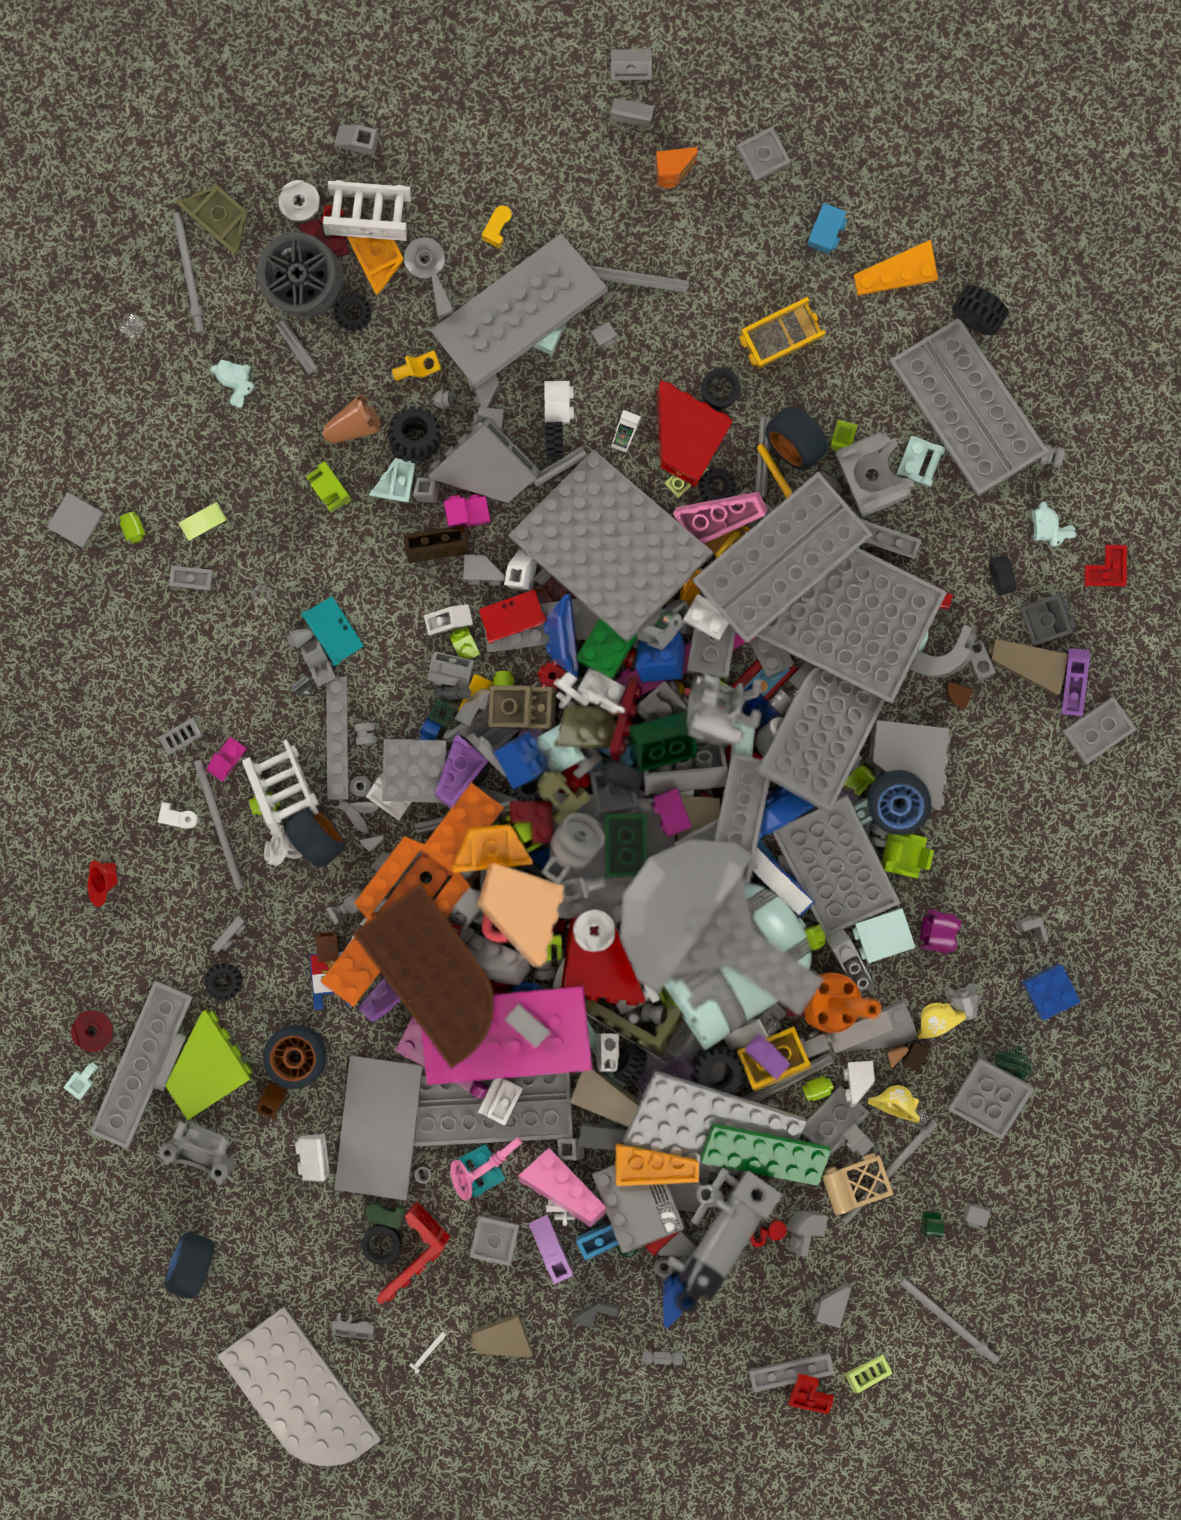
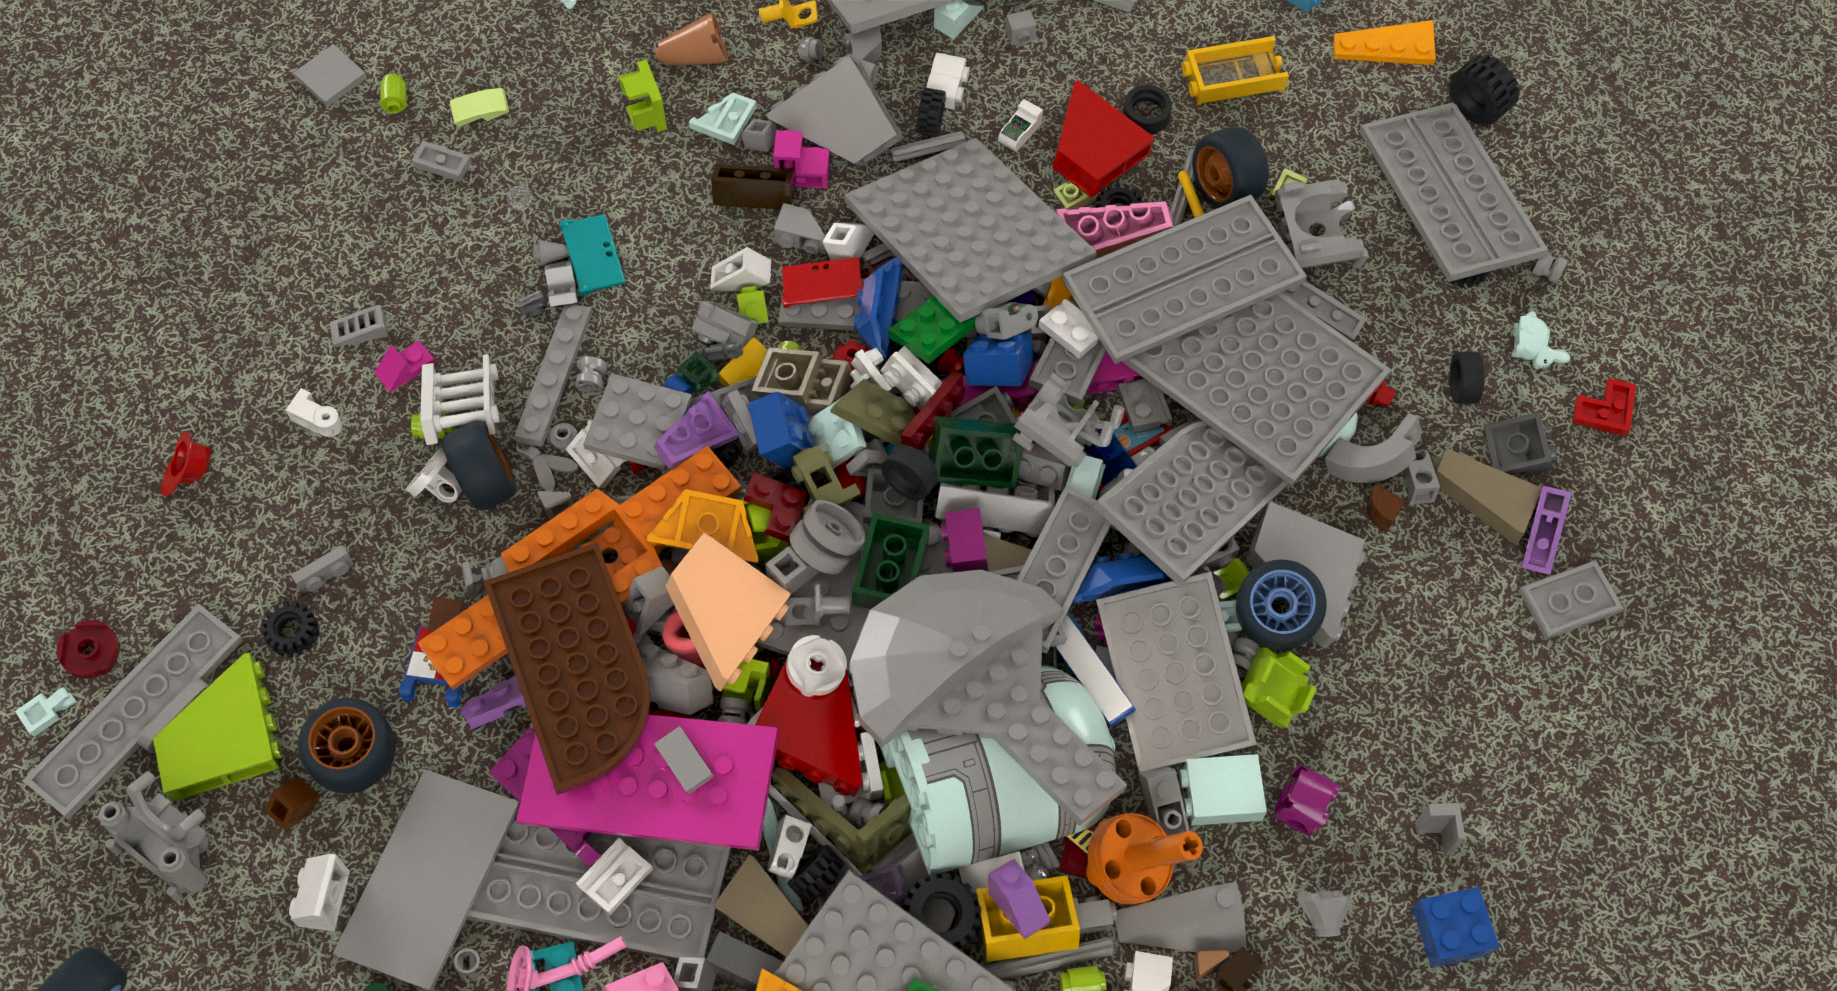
camera: 10 degrees right, 25 degrees down
(202, 775) = (366, 376): light grey bar -> none
(419, 420) = (764, 70): black tyre -> none
(477, 701) = (745, 369): light grey slope -> none
(815, 936) = (1126, 763): lime bracket -> none
(914, 458) = (1375, 231): light aqua plate -> none
(938, 1019) = (1280, 920): light yellow hat -> none

